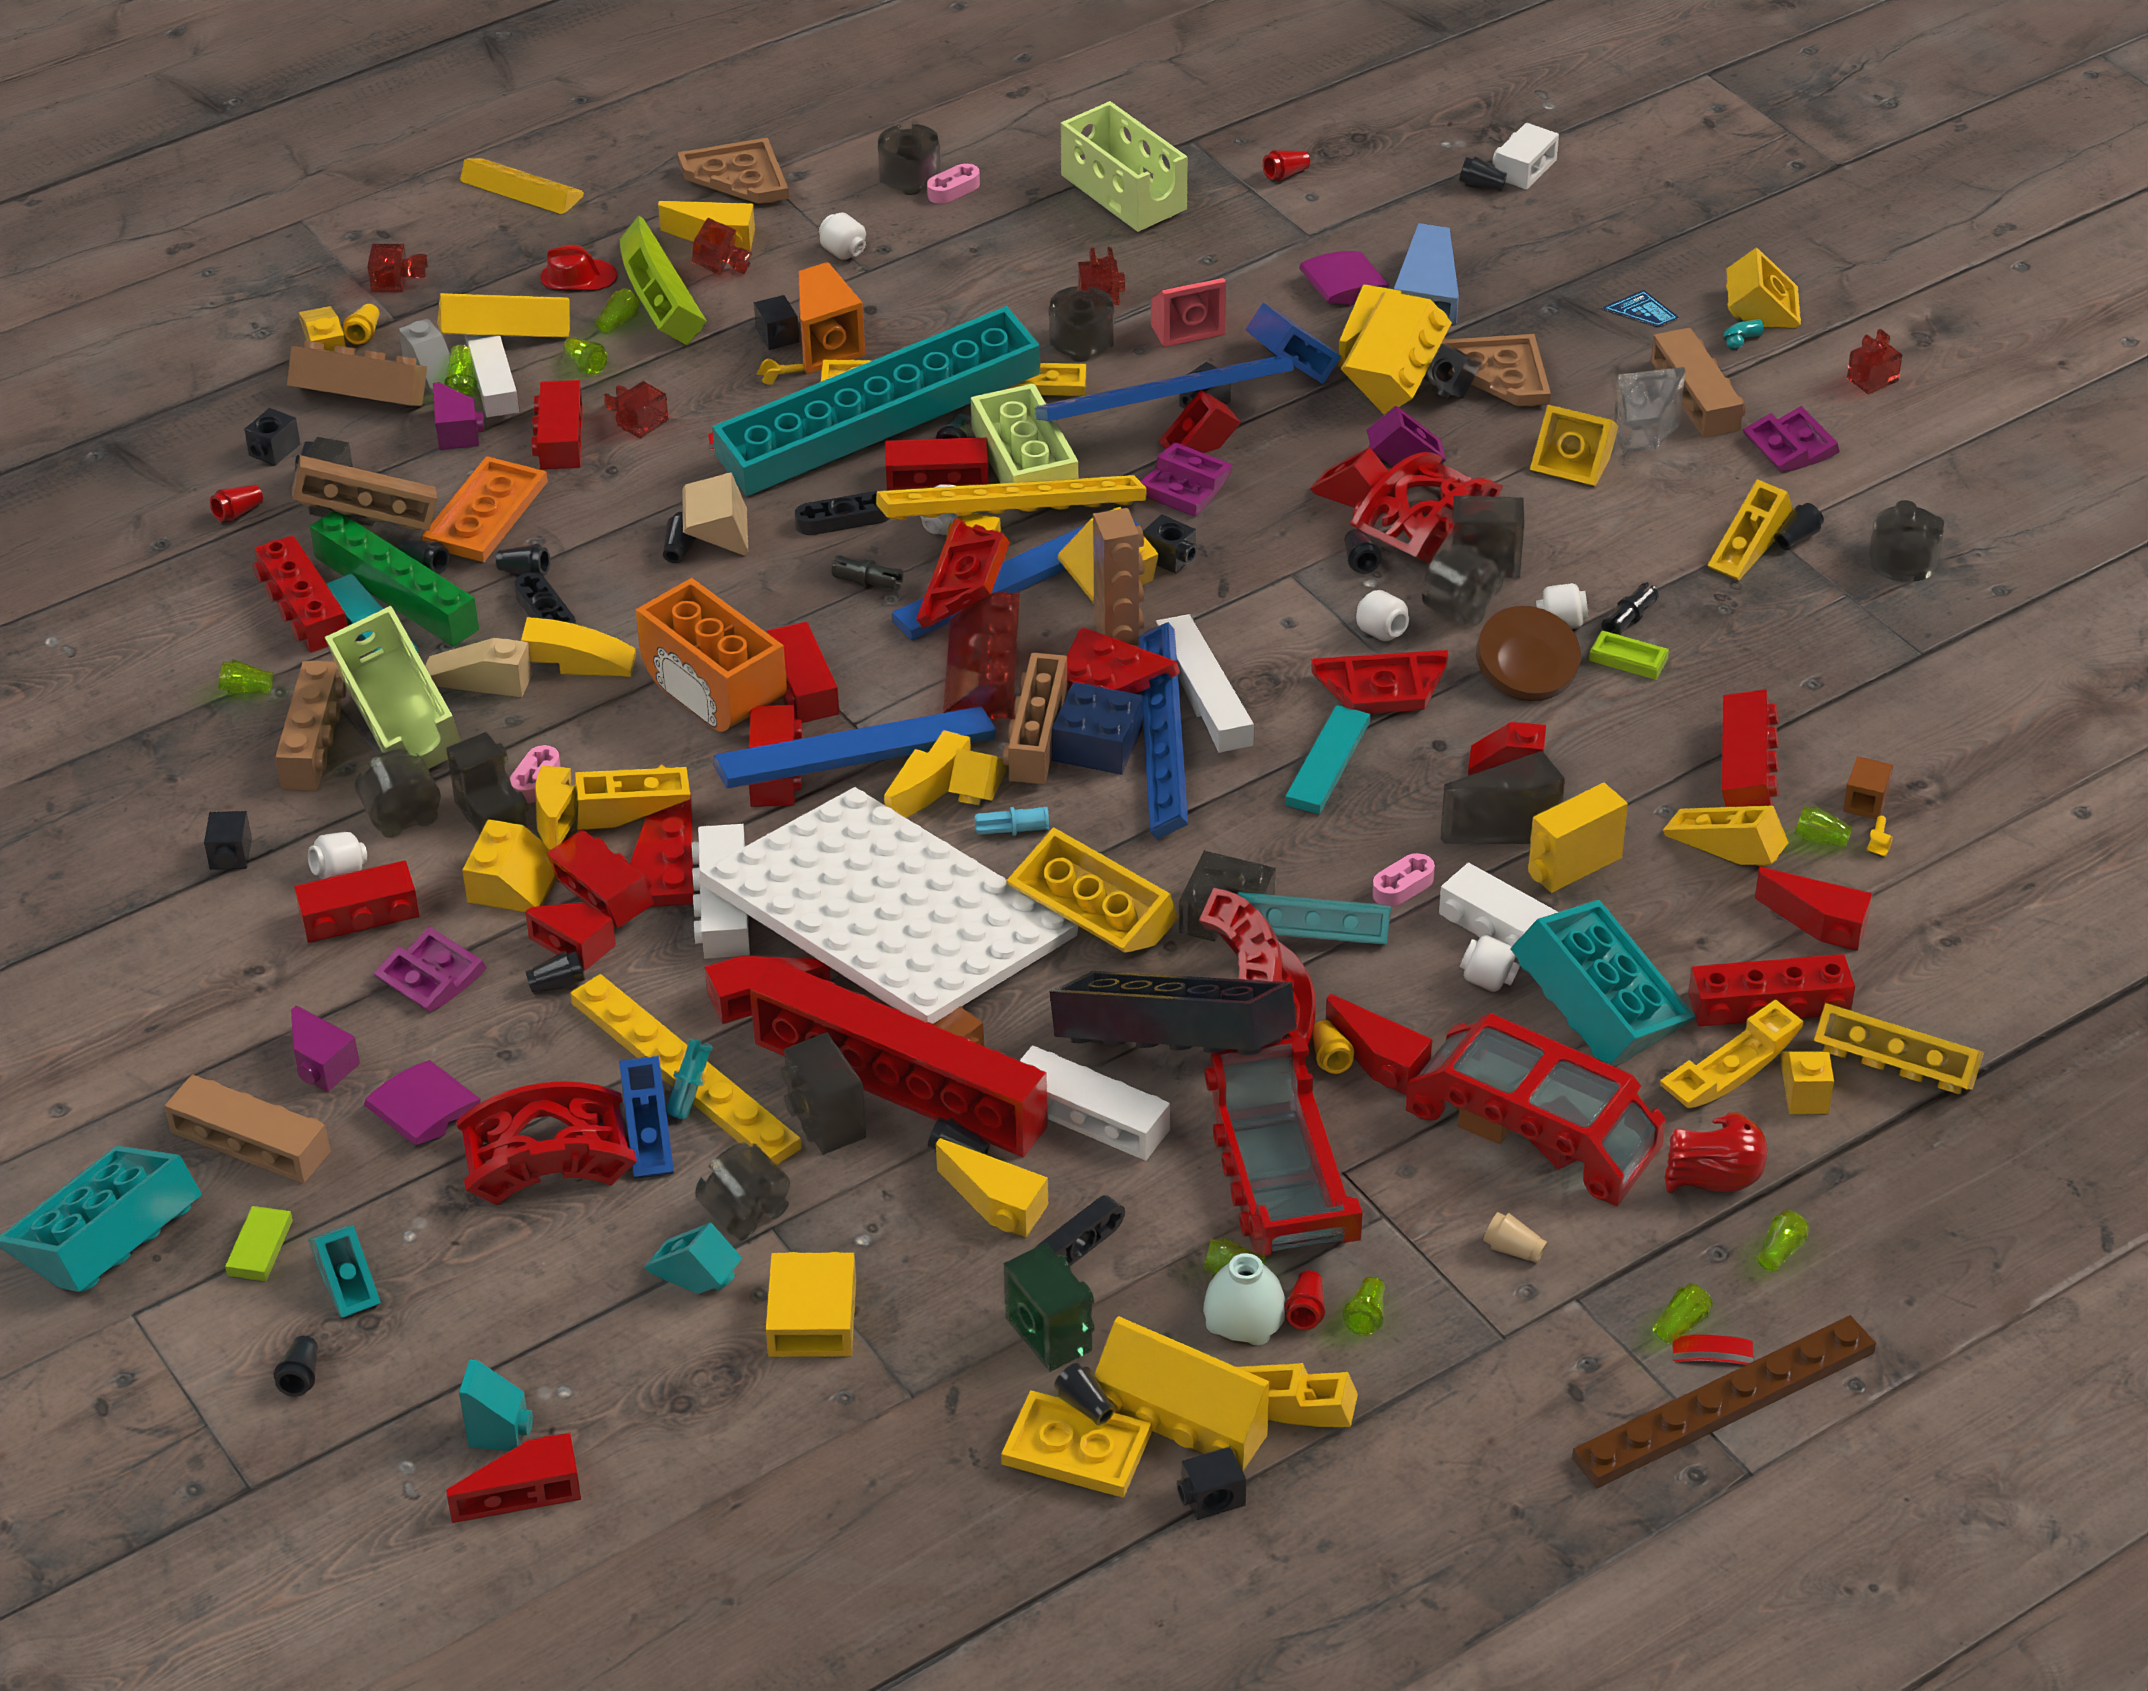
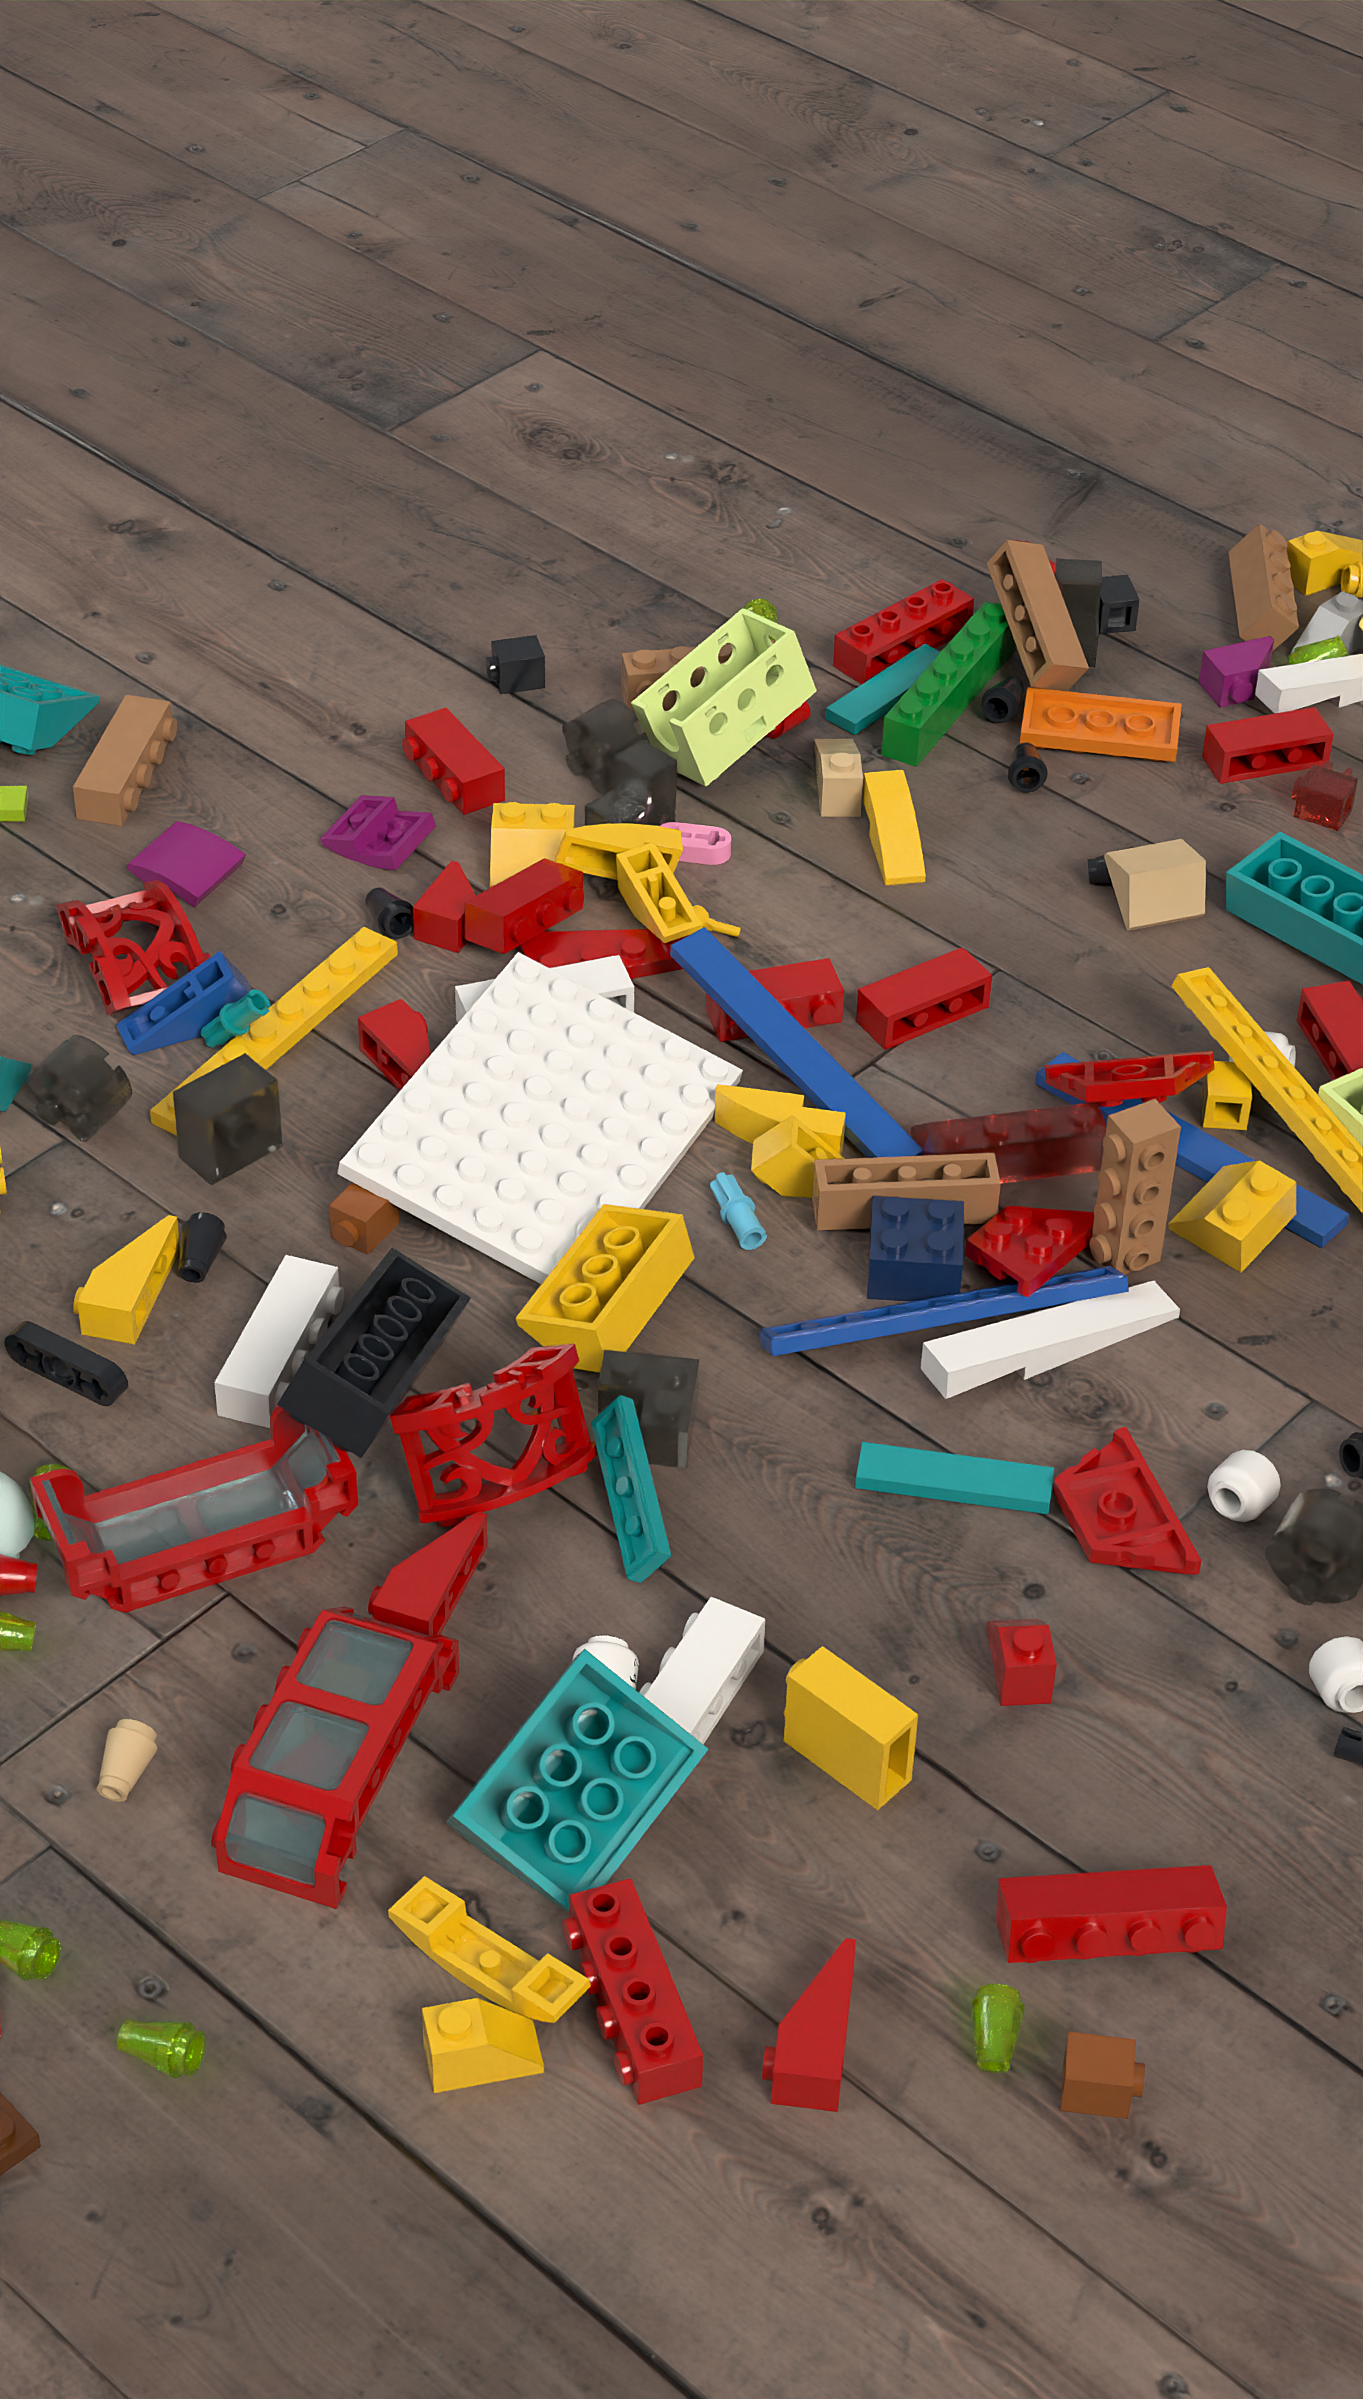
camera: 75 degrees right, 0 degrees up
(272, 436) = (1143, 561): black brick -> none
(321, 1050) = (239, 779): magenta slope -> none
(336, 855) = (513, 734): white head -> none
(545, 596) = (941, 813): black beam -> none
(709, 655) = (880, 900): orange brick -> none
(821, 515) = (1250, 996): black beam -> none
(867, 573) = (1125, 1021): pearl dark grey pin -> none
(905, 1057) = (292, 1166): red brick -> none
(1172, 542) = (1296, 1264): black brick -> none
(1332, 1049) = (412, 1536): yellow cone -> none
(1403, 879) = (749, 1579): bright pink beam -> none
(1500, 802) = (899, 1641): clear smoke slope -> none
(1528, 653) = (1229, 1646): reddish brown piece -> none
(1629, 655) = (1296, 1771): lime tile -> none
(1717, 1159) = (278, 1959): red piece -> none
(1734, 833) = (938, 1915): yellow slope -> none
(1880, 842) = (999, 2100): yellow hand -> none
(1898, 1046) = (542, 2145): yellow brick -> none

